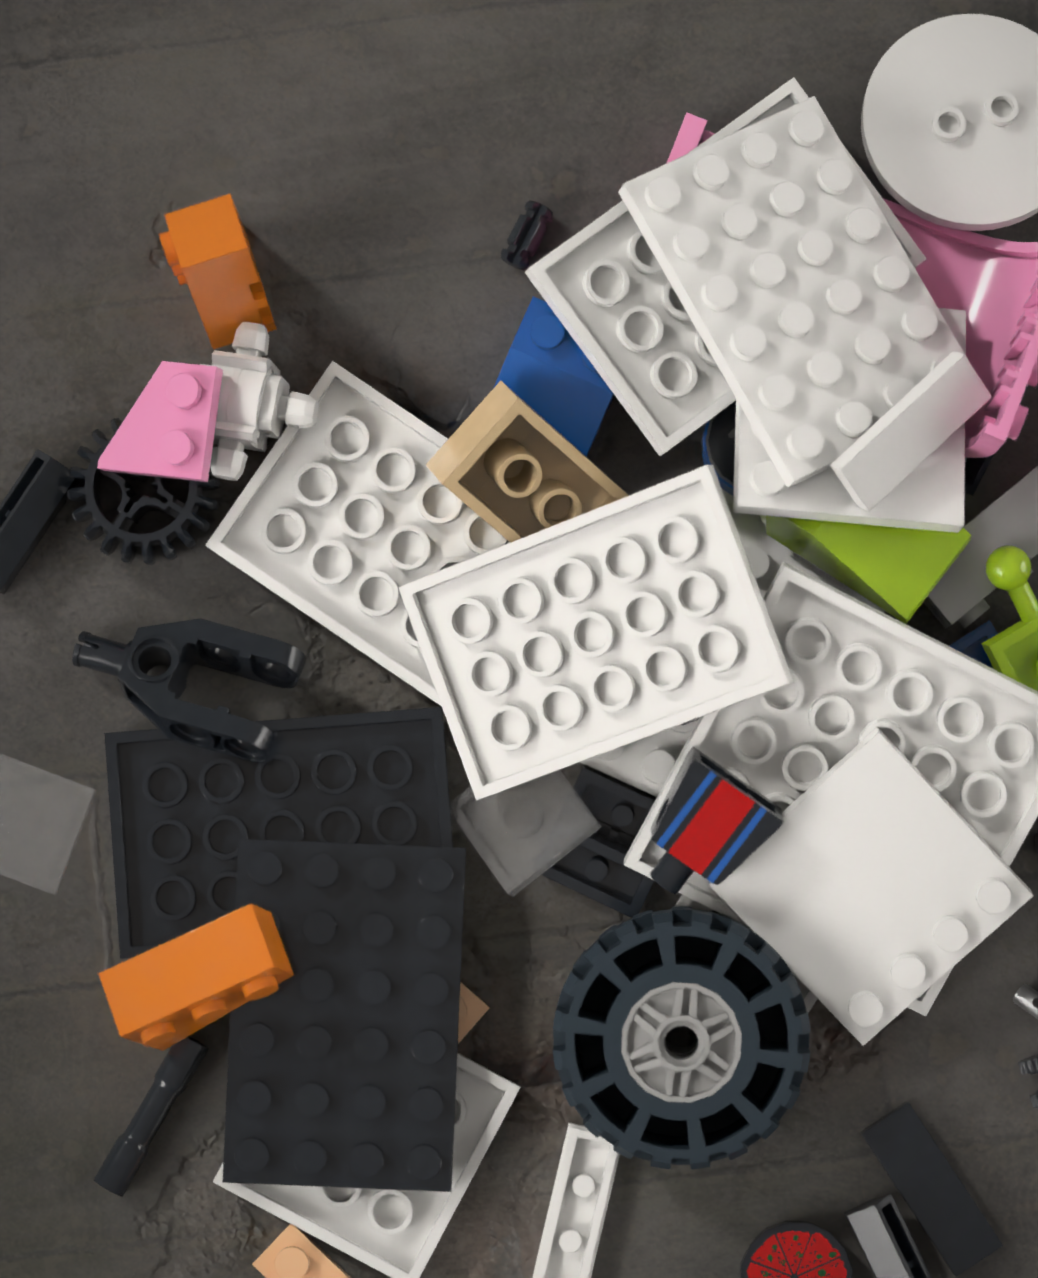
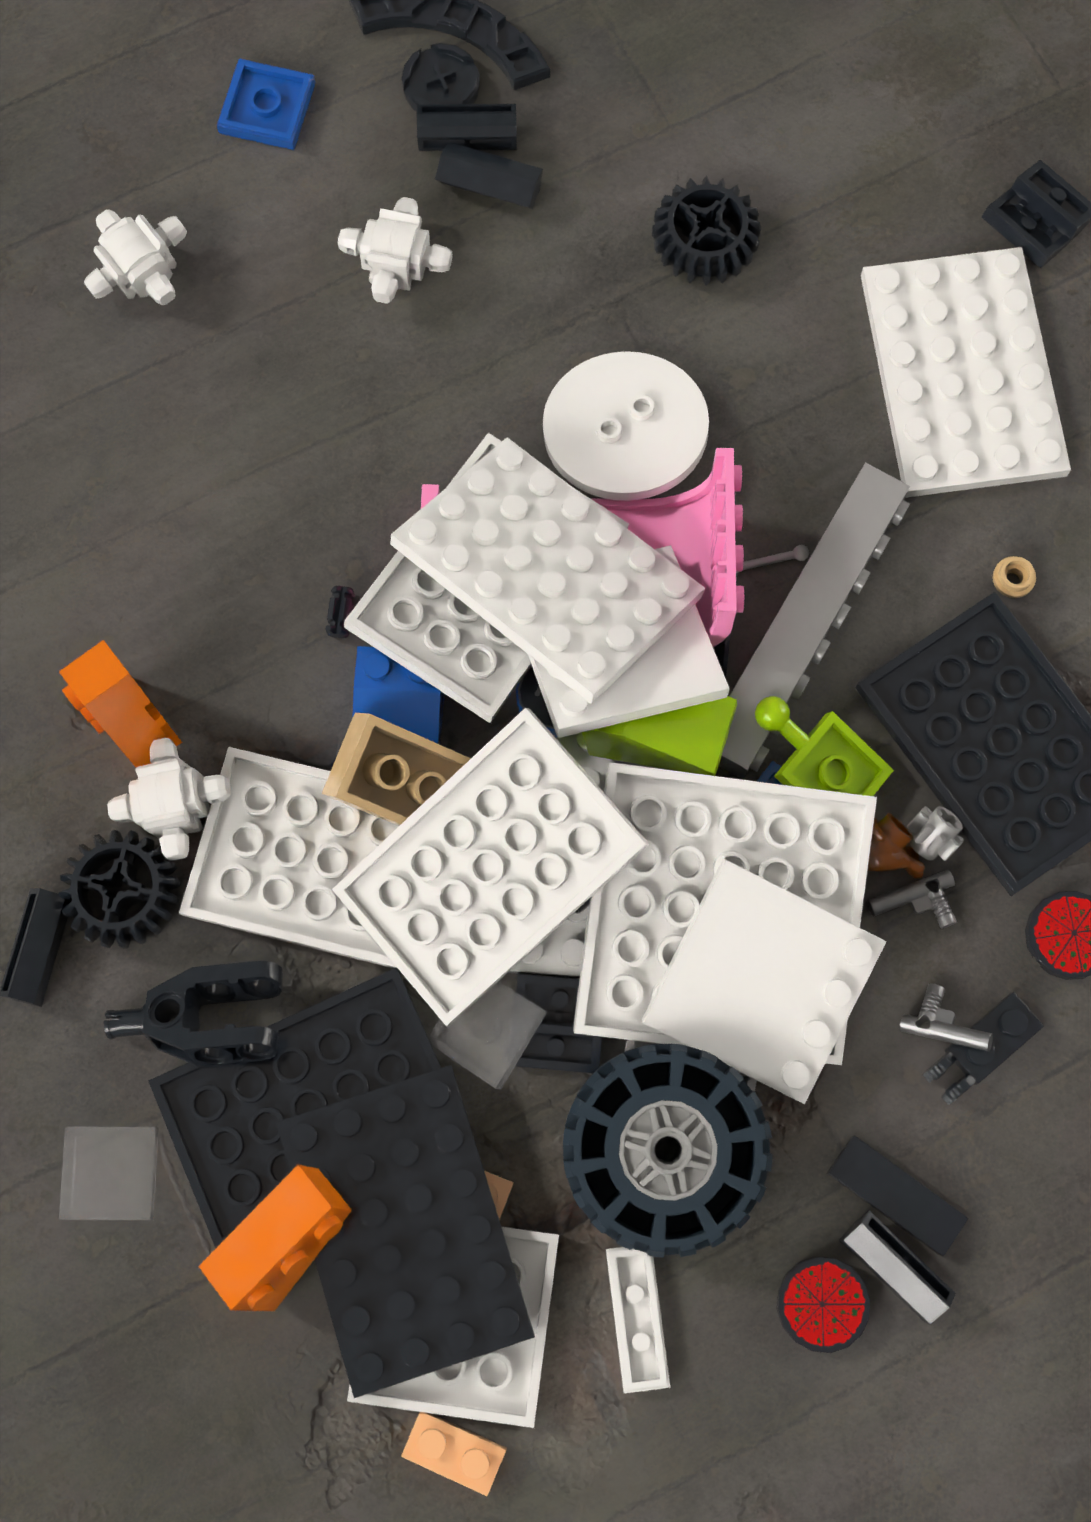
camera: 20 degrees left, 10 degrees down
(133, 1144) = (276, 1394): black piece -> none
(169, 425) = (119, 831): bright pink wing -> none
(709, 823) = (626, 976): torso -> none
(911, 430) = (664, 632): white tile -> none

